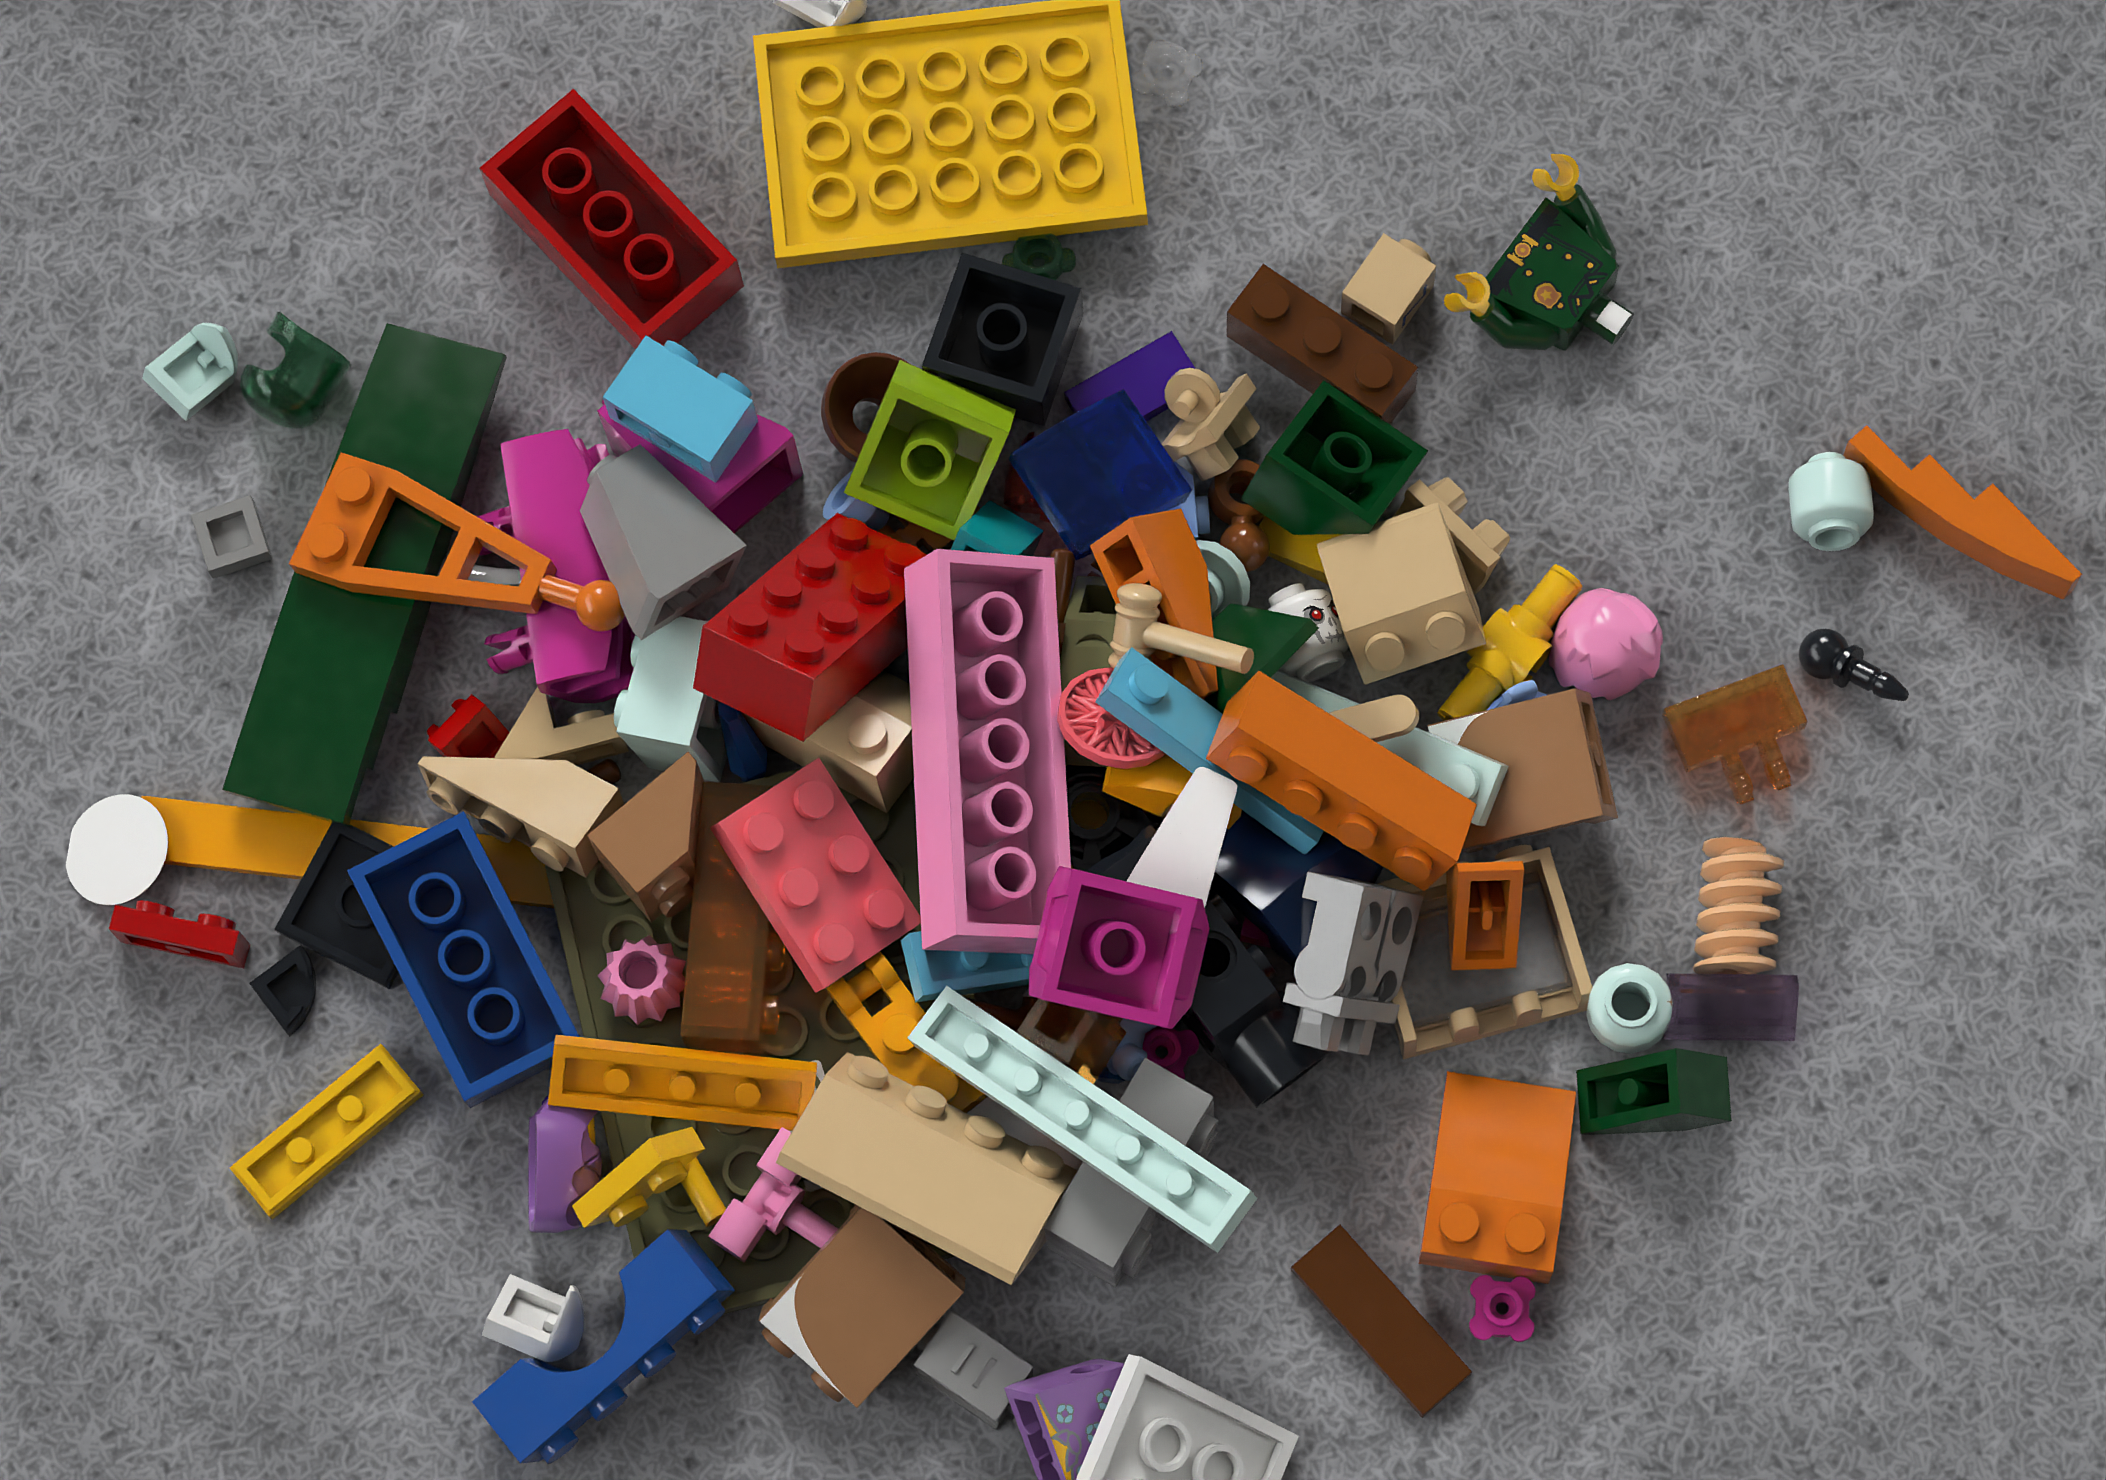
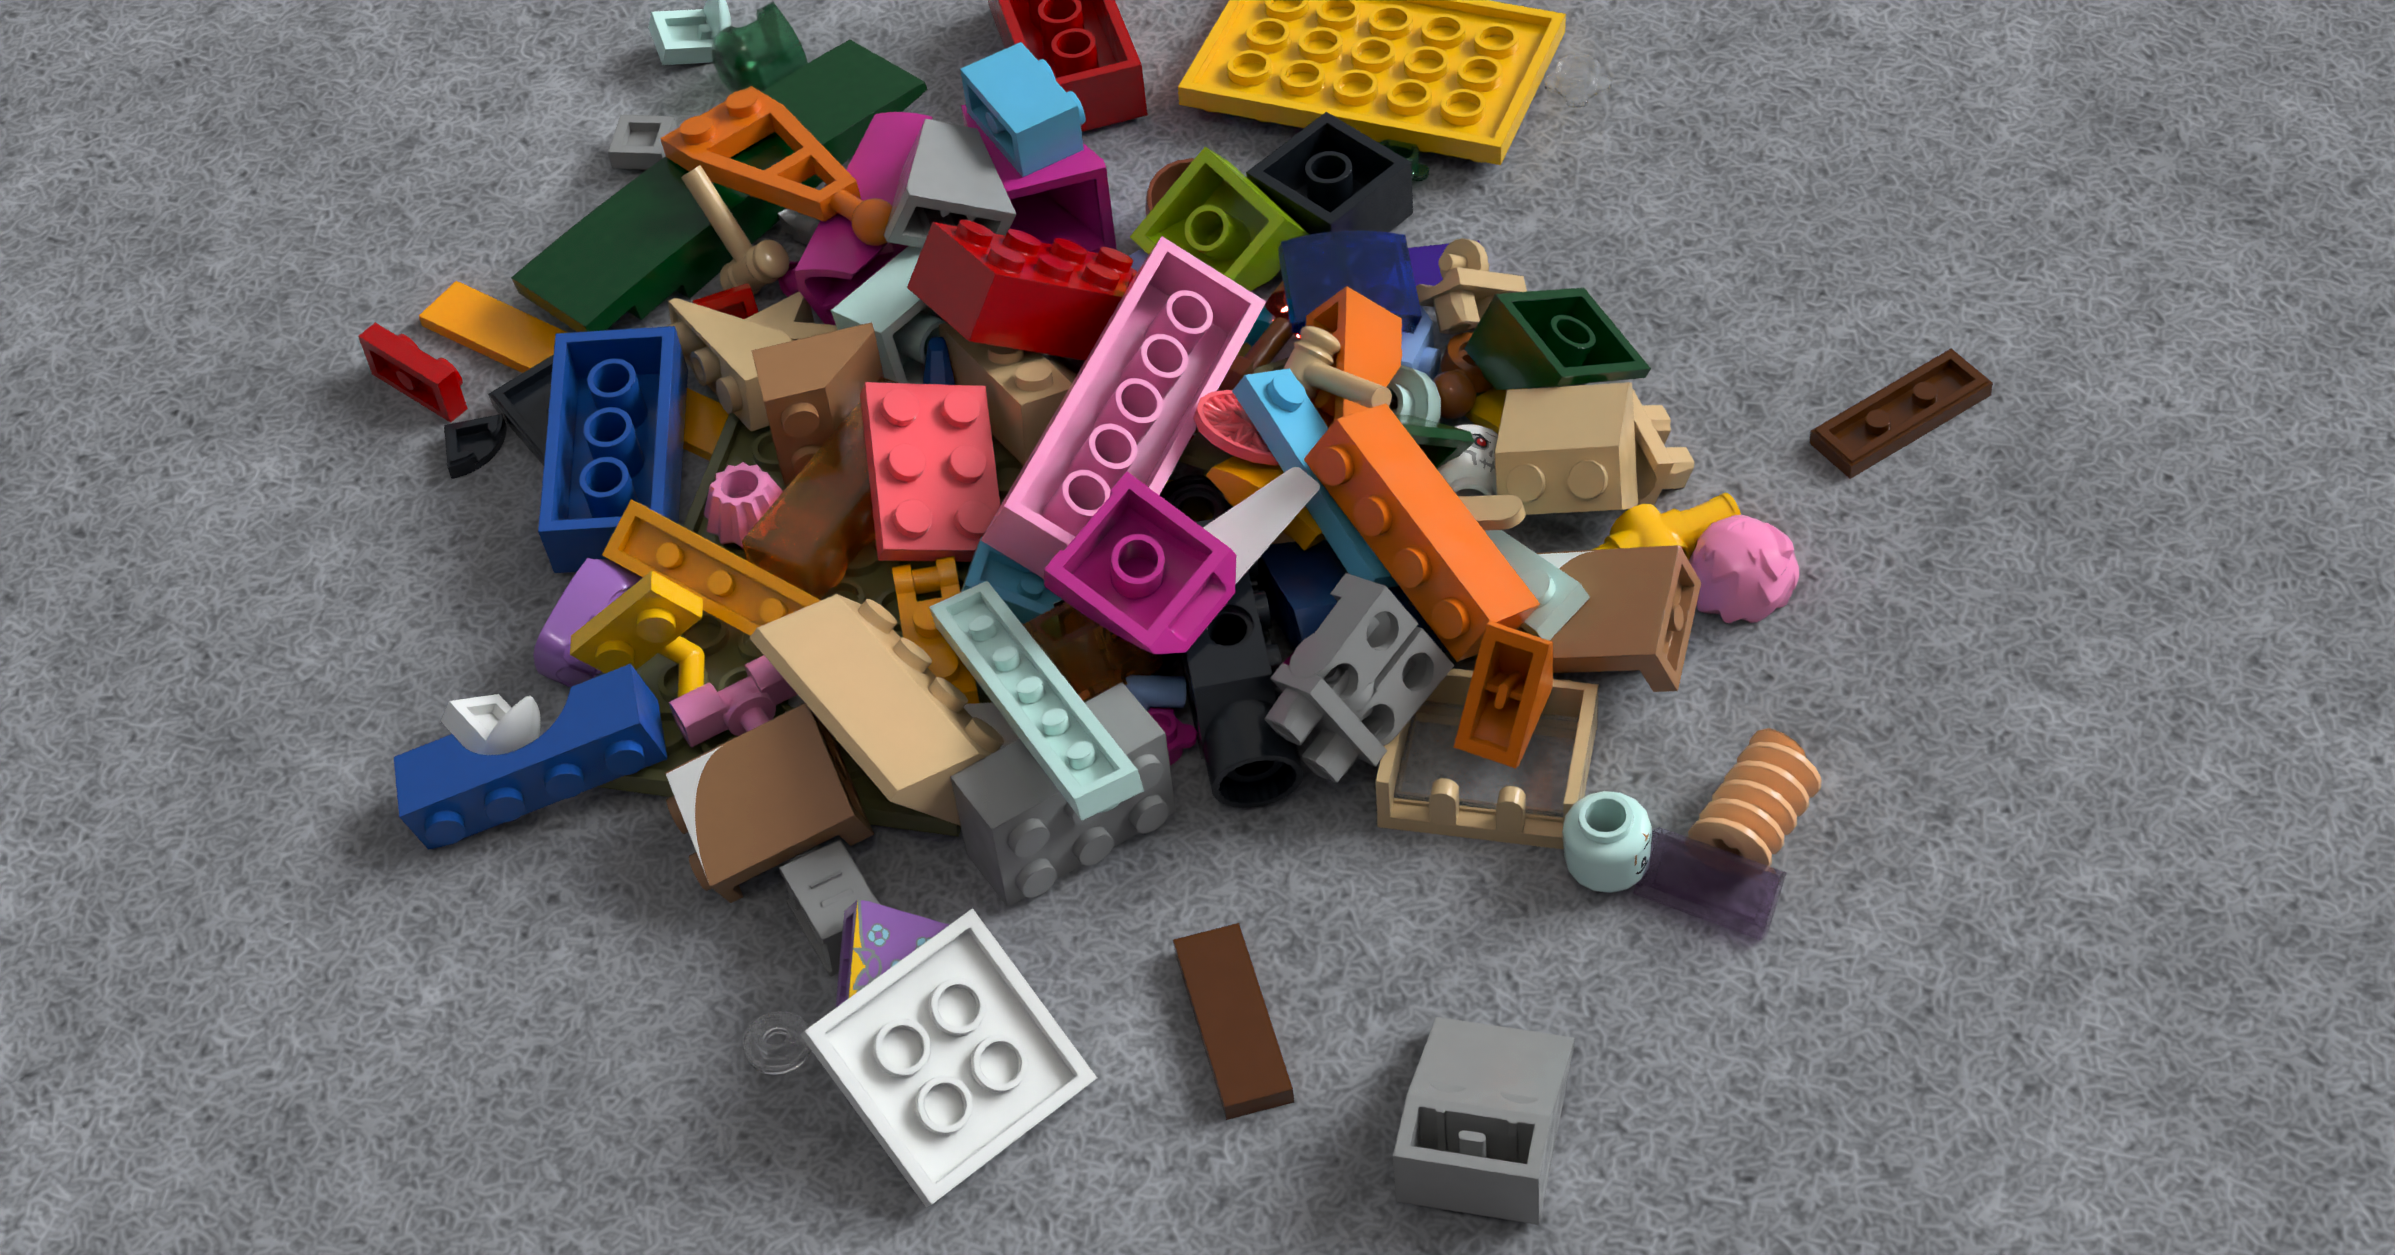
camera: 25 degrees right, 25 degrees down
(117, 849) = (415, 305): white sticker -> none
(326, 1131) = (430, 548): yellow tile -> none
(445, 668) = (750, 264): none -> tan piece
(1318, 344) = (1576, 251): reddish brown brick -> none
(1389, 287) = (1683, 264): tan brick -> none
(1488, 1321) = (1355, 1067): dark pink plate -> none
(1498, 1178) = (1402, 946): orange slope -> none
(1550, 275) = (1829, 297): dark green torso -> none
(1649, 1325) = (1482, 1120): none -> light grey slope
(1654, 1093) = (1600, 923): dark green slope -> none
(1666, 385) = (1900, 413): none -> reddish brown tile
(1735, 720) = (1834, 667): clear orange hinge -> none
(1828, 656) = (1954, 655): black bar -> none
(1830, 501) = (2010, 530): light aqua head -> none
(1981, 528) = (2142, 592): orange slope -> none

